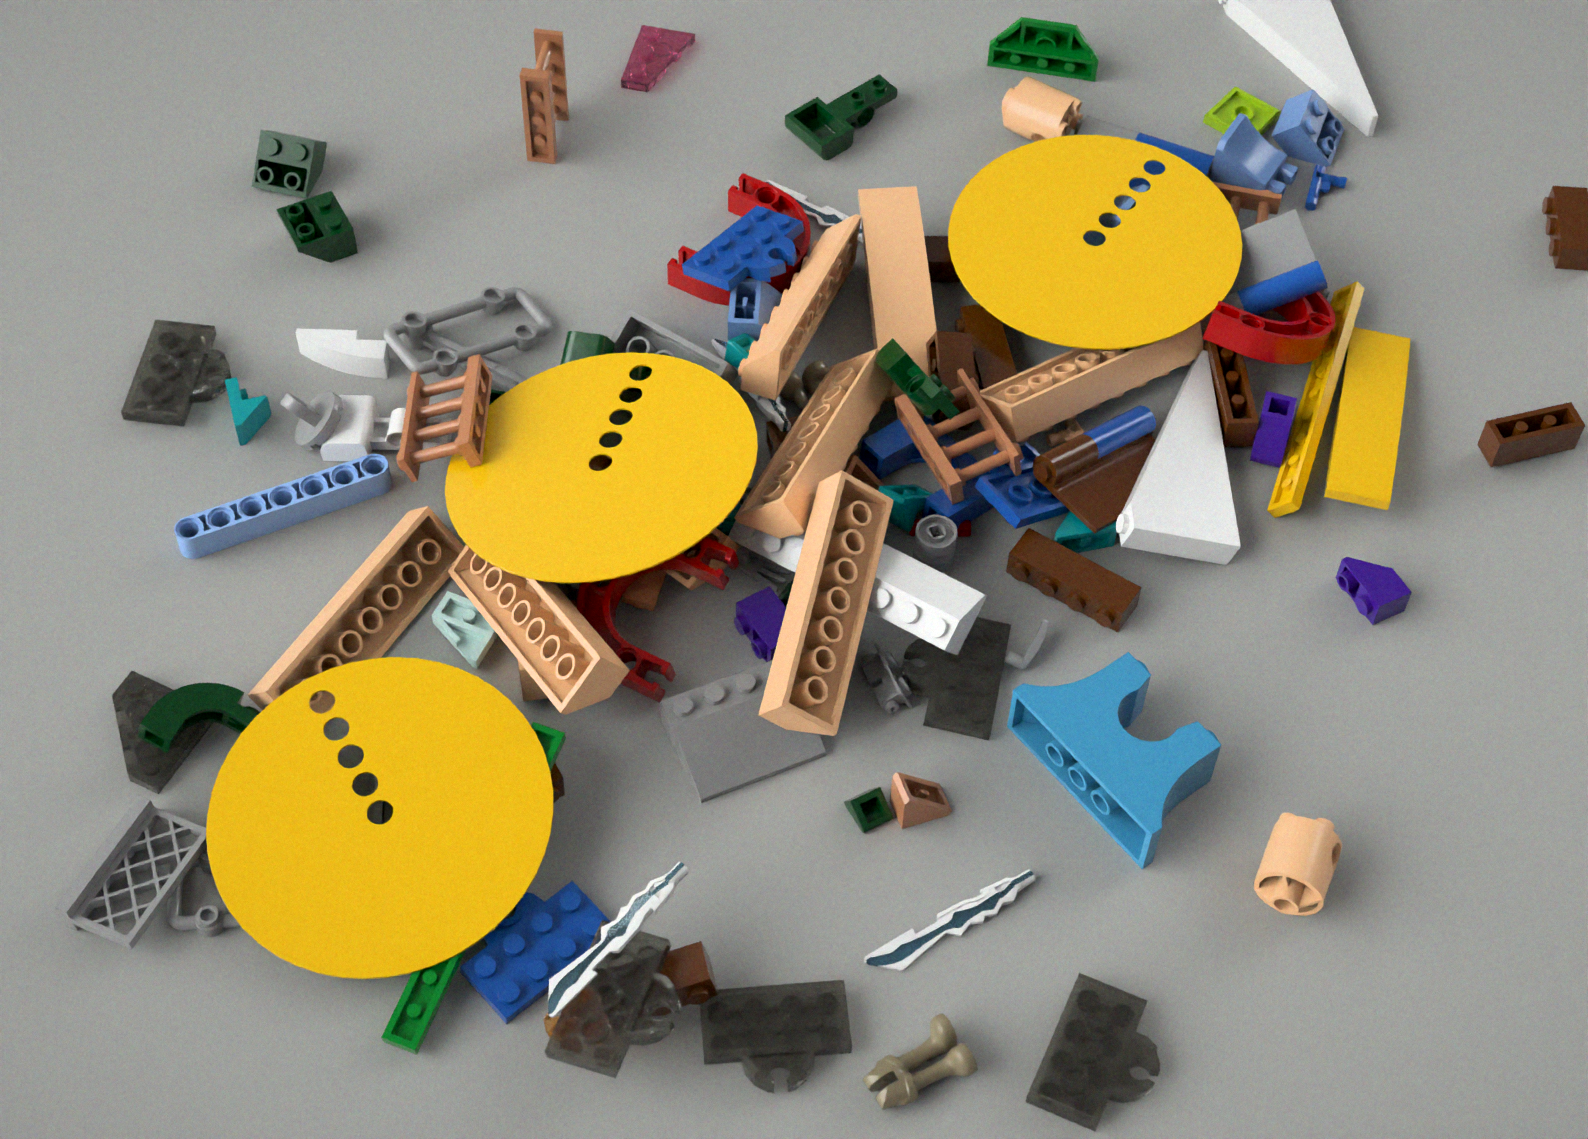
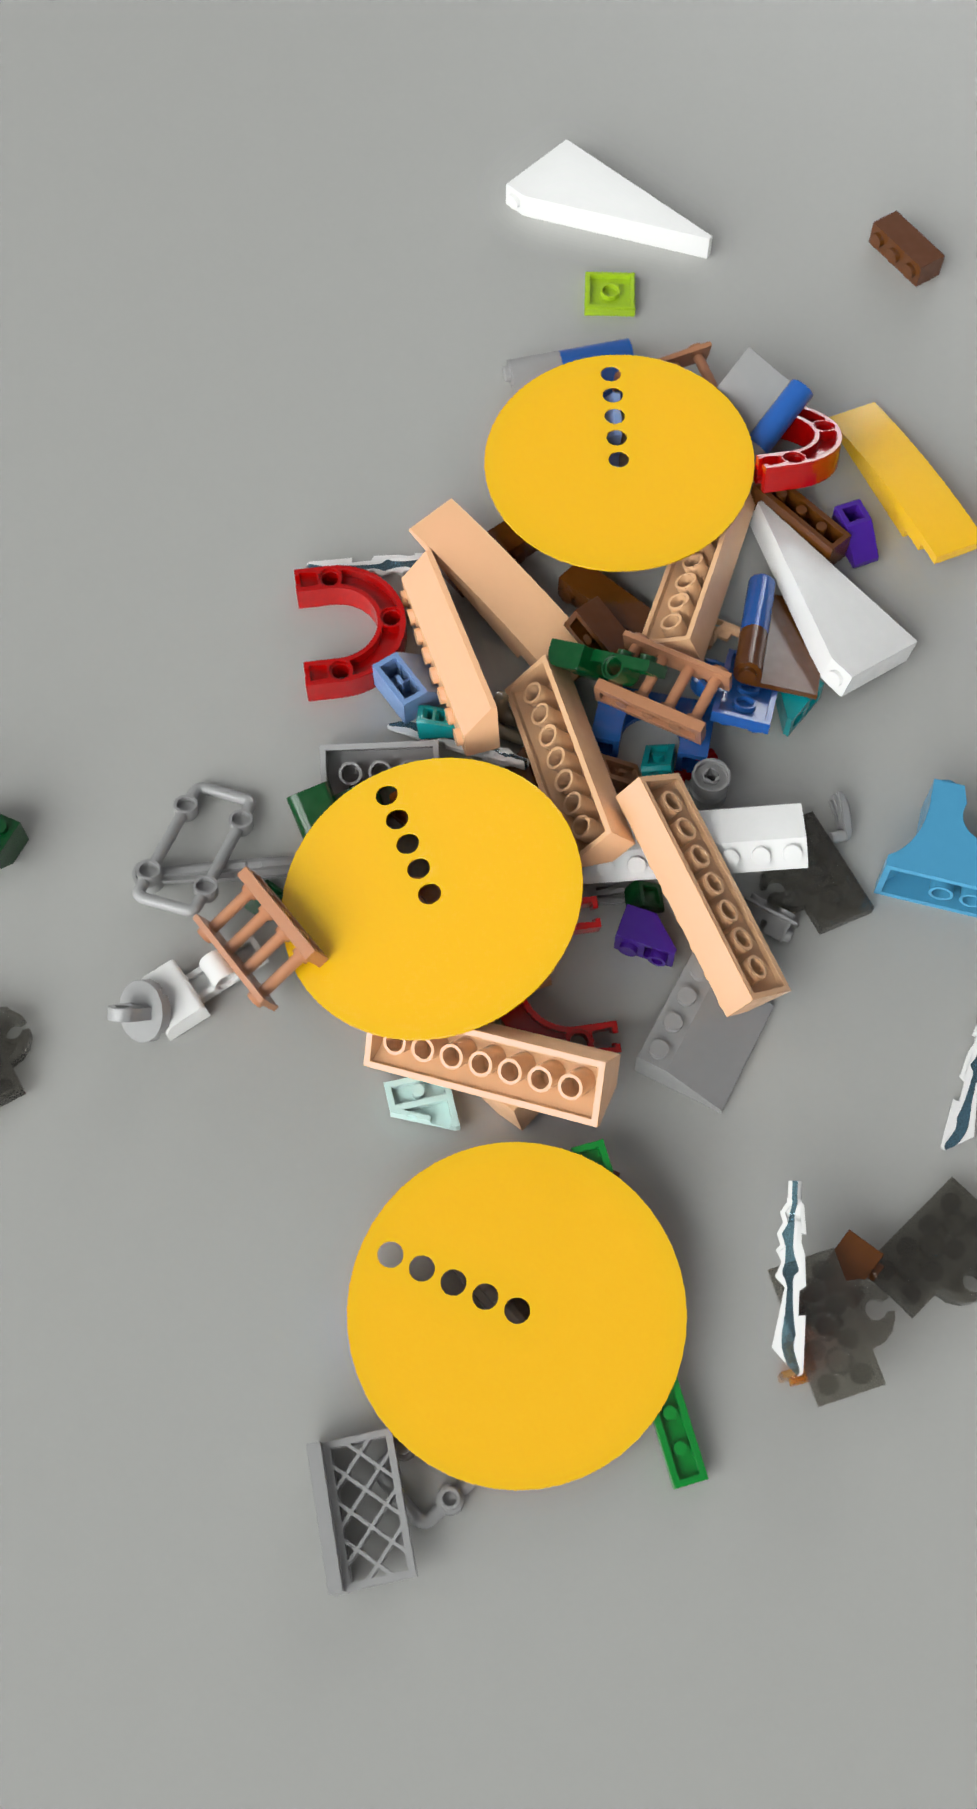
camera: 35 degrees left, 10 degrees up
(144, 762) = (253, 1372): clear smoke plate -> none
(191, 706) = (272, 1355): dark green arch -> none
(247, 413) = (72, 1048): teal slope -> none
(283, 506) = (180, 1119): light blue beam -> none
(345, 352) = (106, 935): white slope -> none
(369, 607) = (334, 1153): light nougat slope -> none
(532, 949) = (720, 1324): blue plate -> none
(544, 96) = (84, 601): nougat fence -> none
(651, 56) = (119, 510): clear pink wing -> none
(747, 248) = (364, 634): blue plate -> none
(828, 127) = (316, 487): dark green plate -> none
(869, 809) = (842, 1028): dark green slope -> none
(917, 800) = (872, 999): nougat slope -> none
(1039, 110) = (474, 378): light nougat cylinder -> none
(1044, 49) = (429, 323): green wedge -> none
(1073, 580) = (824, 745): reddish brown brick -> none
(1250, 161) = (657, 328): medium blue hips -> none
(1308, 129) = (668, 276): medium blue slope -> none
(1315, 405) = (857, 485): yellow plate -> none
(1321, 183) = (710, 315): blue hose -> none

